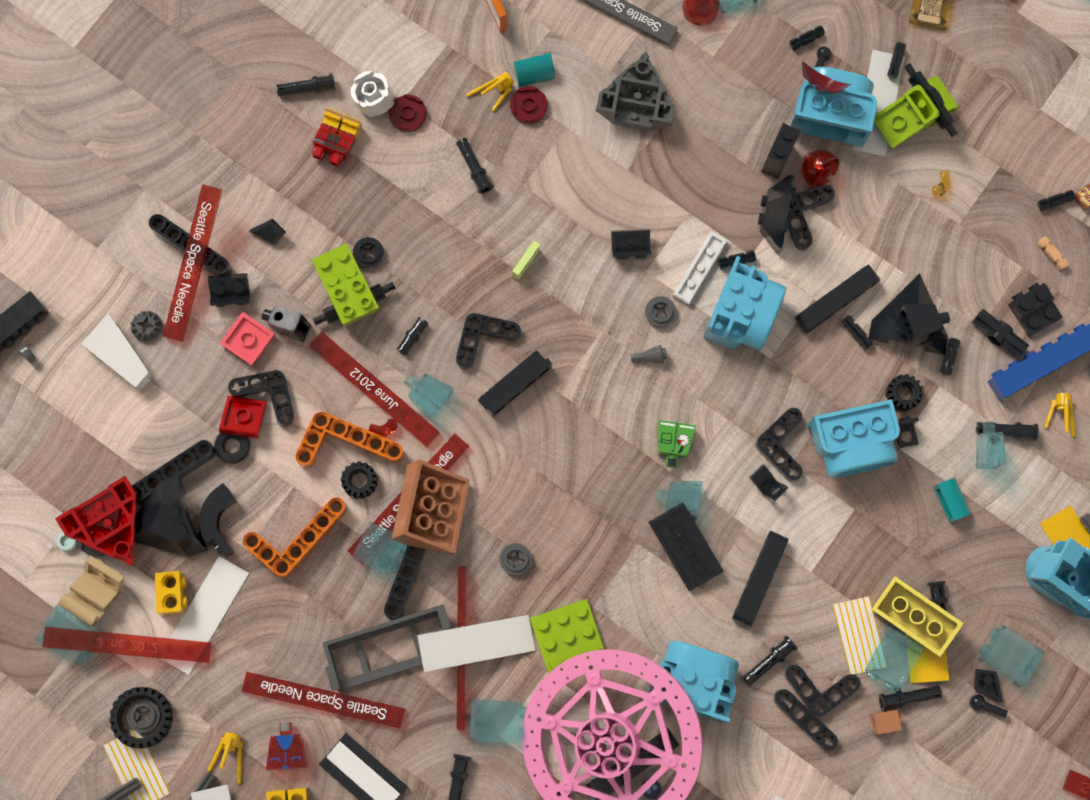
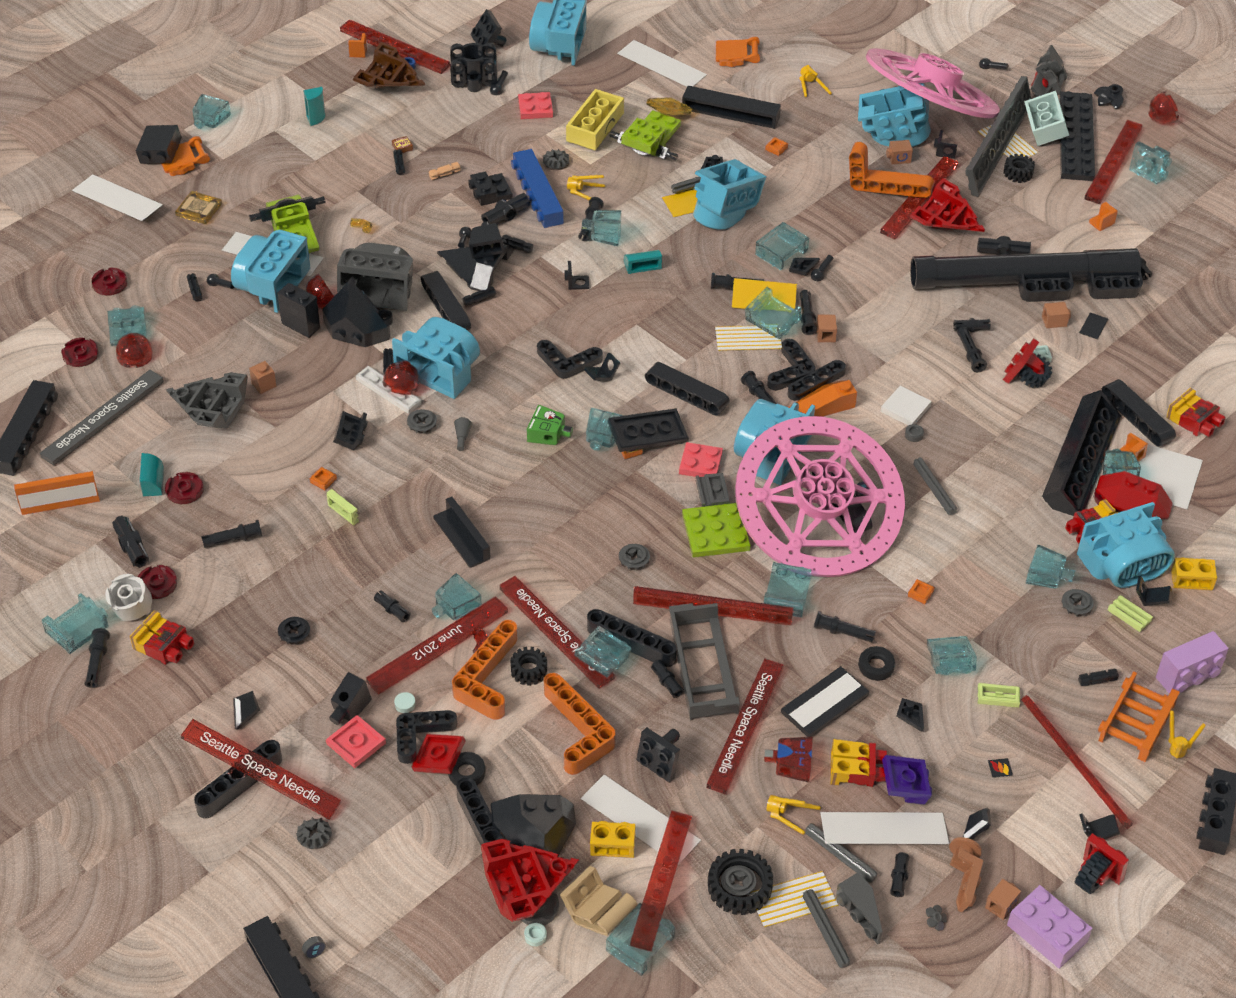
camera: 75 degrees left, 30 degrees down
(114, 349) = (339, 858): white slope -> none
(211, 511) = (523, 782): black arch -> none
(229, 289) = (297, 748): black bracket -> none
(266, 622) = (659, 752): none -> black plate
(300, 373) = (404, 702): none -> light aqua tile
(341, 56) = (76, 624): none -> clear light blue panel
(346, 288) = (334, 647): lime piece -> none
(365, 615) = (667, 678): none -> black pin
(430, 508) = (571, 603): nougat slope -> none
(448, 75) = (130, 541): none -> black piece
(476, 643) = (711, 589): white sticker -> none
(483, 321) = (401, 553): black beam -> none
(501, 82) = (156, 502): yellow plant -> none
(565, 232) = (323, 478): none -> orange tile
(618, 626) = (712, 489): none -> dark grey plate
(661, 608) = (700, 460): none -> coral plate
(685, 139) = (262, 377): none -> nougat brick
(708, 278) = (401, 378): none -> clear red cylinder
(774, 729) = (830, 399): none -> orange wedge
(821, 81) = (257, 252): dark red piece -> none
(846, 217) = (380, 272): none -> dark grey brick
(856, 438) = (578, 297): medium azure brick -> none
(896, 60) = (237, 233): black axle -> none
(914, 386) = (543, 281): black tyre -> none
(917, 616) = (739, 287): light yellow brick -> none
(956, 297) = (464, 233): none -> black bar

